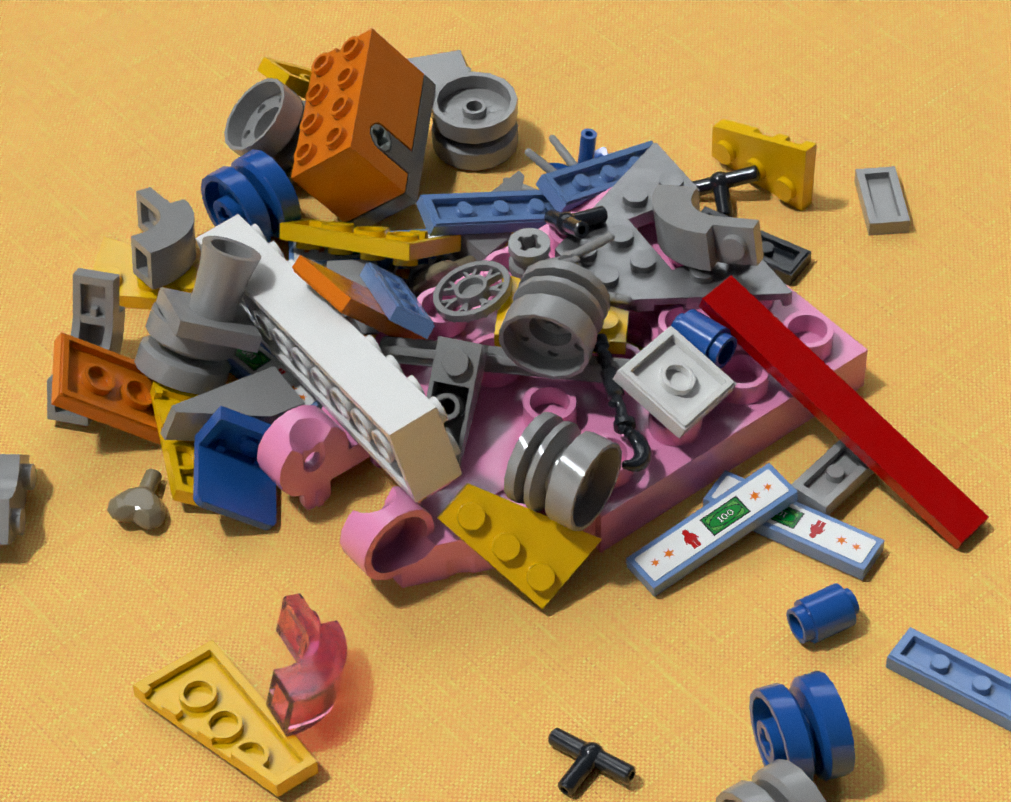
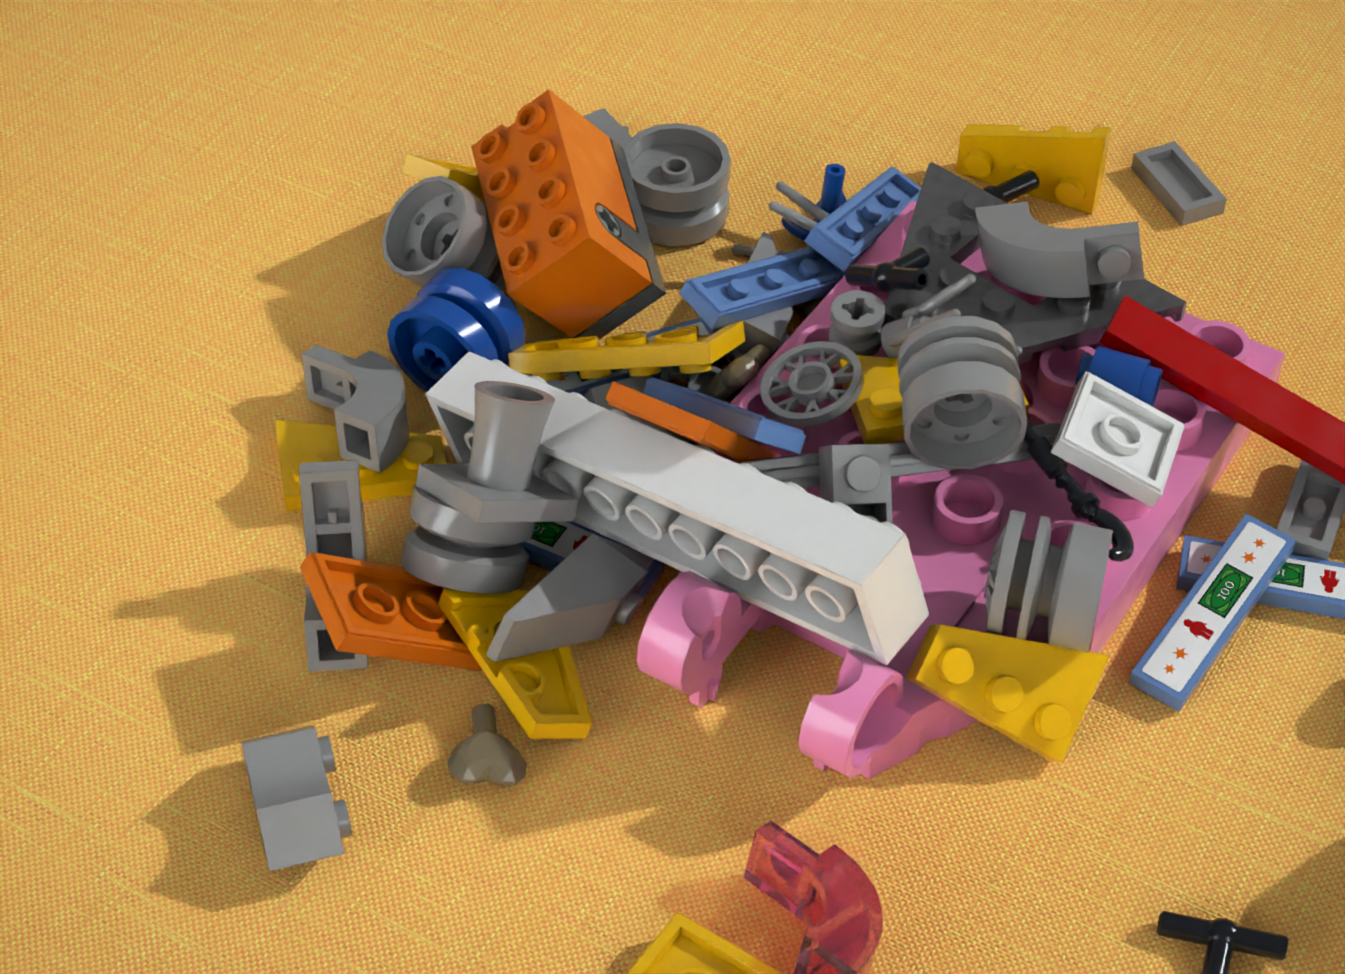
camera: 20 degrees left, 0 degrees up
(228, 469) = (597, 675): blue bracket -> none

